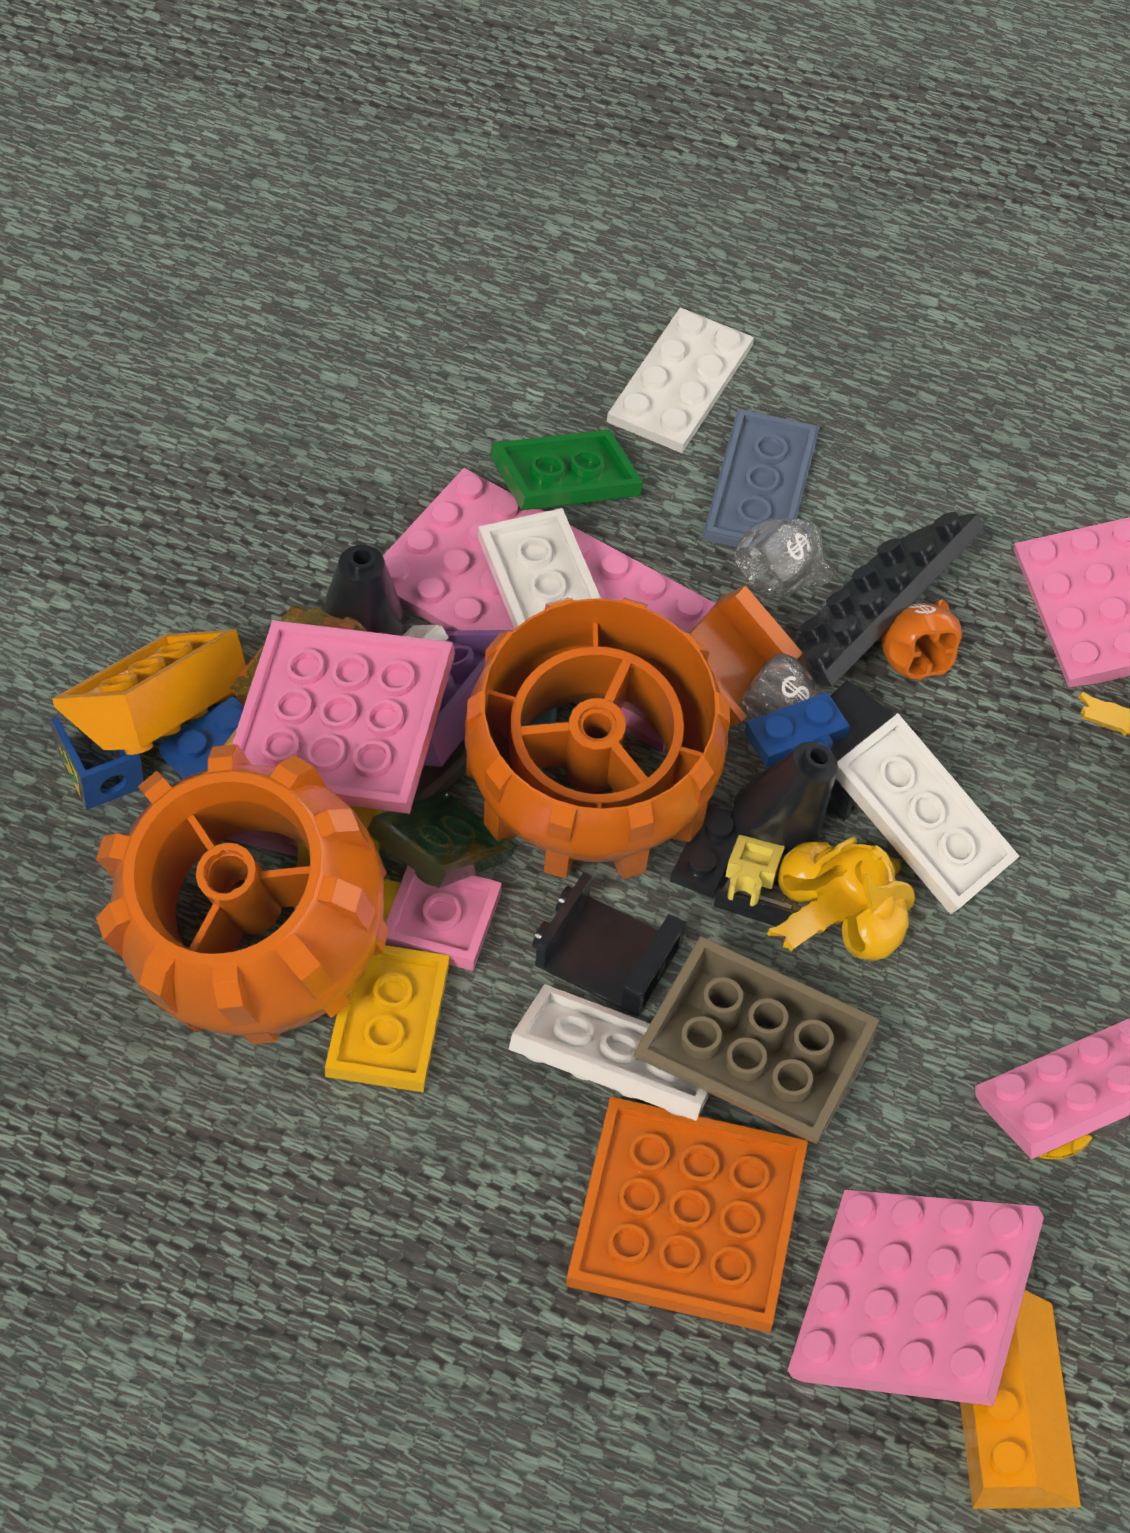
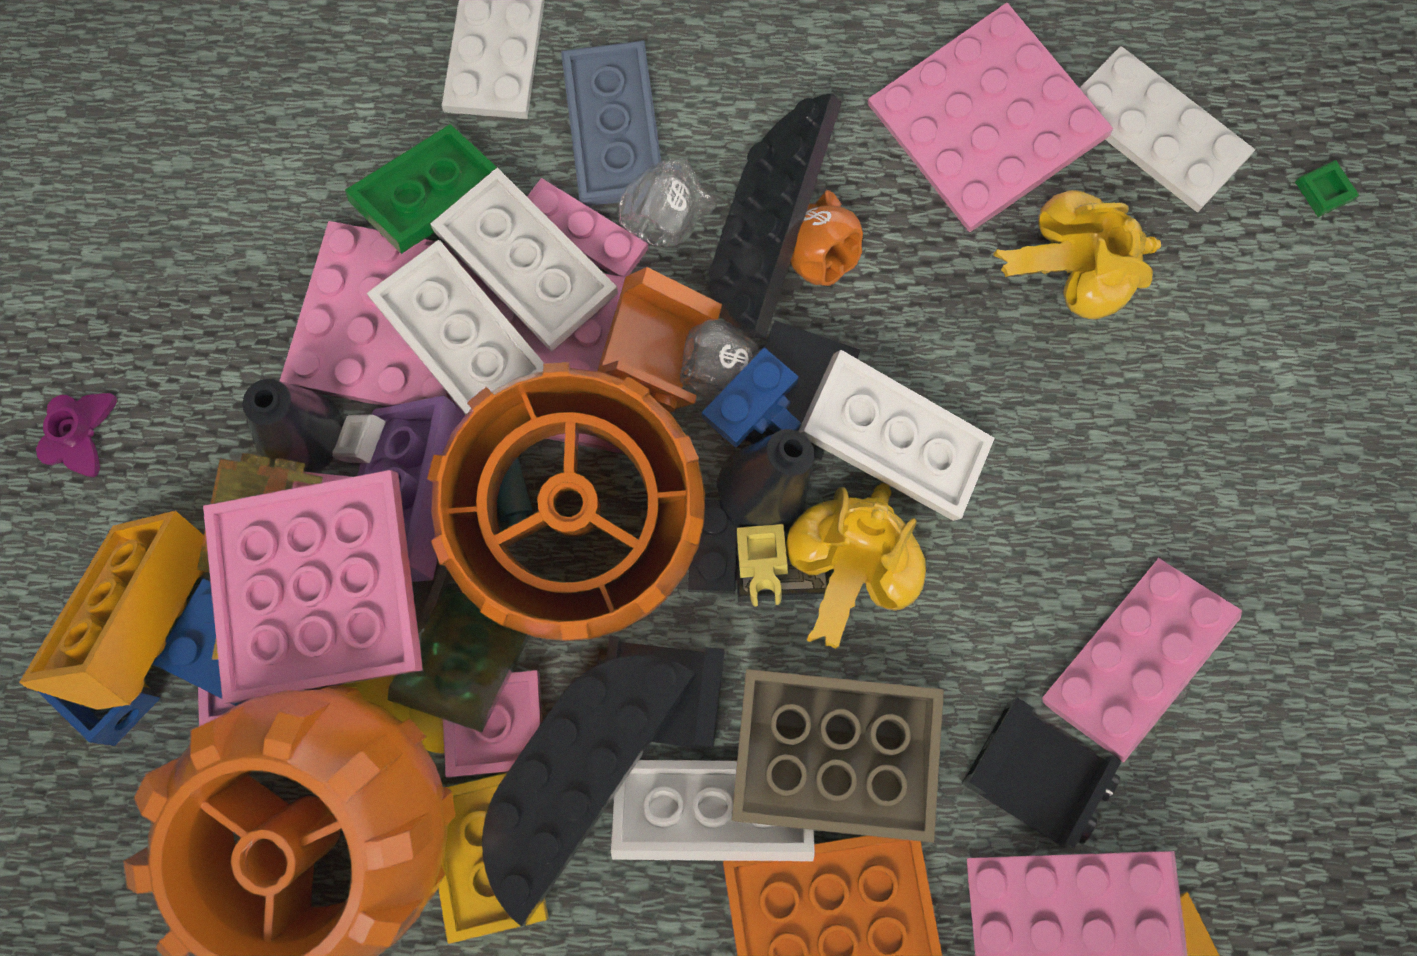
camera: 15 degrees left, 20 degrees up
(158, 551) = (70, 430): none -> magenta animal
(505, 965) = (573, 774): none -> black plate
(633, 546) = (524, 259): none -> white plate
(692, 552) = (592, 233): none -> bright pink plate
(942, 1143) = (1042, 776): none -> black panel

